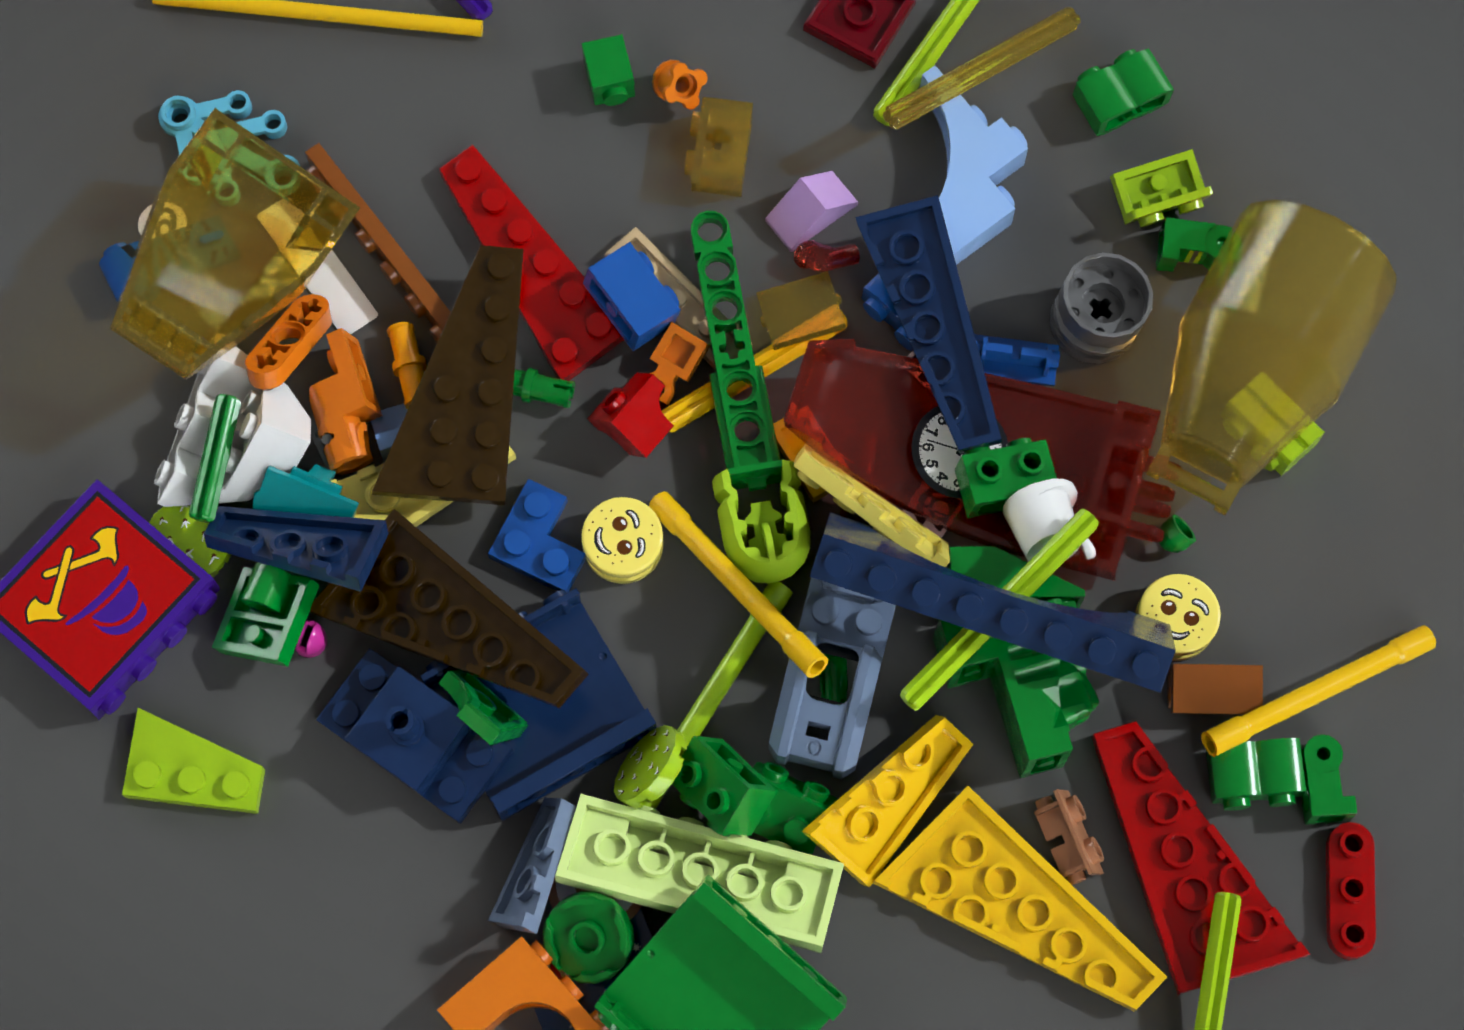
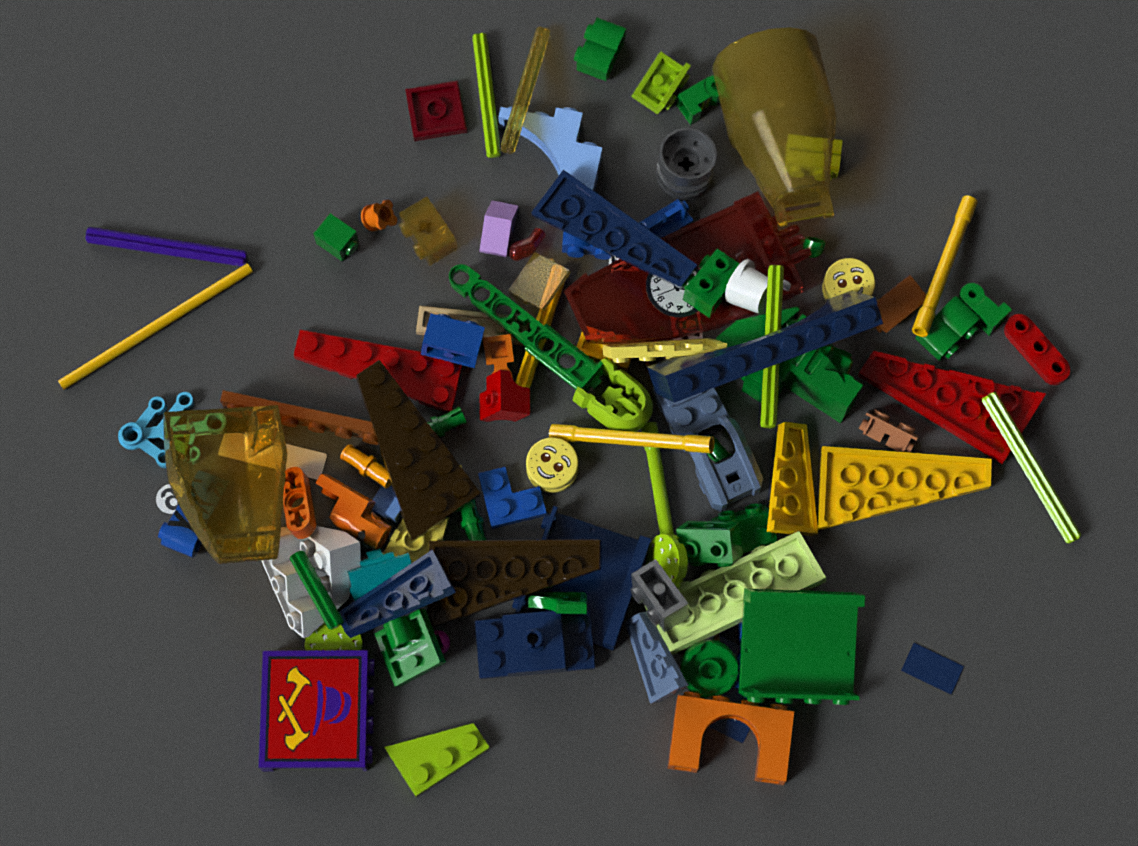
camera: 40 degrees left, 0 degrees up
(470, 532) = (472, 522): none -> green pin
(598, 797) = (659, 595): none -> flat silver brick

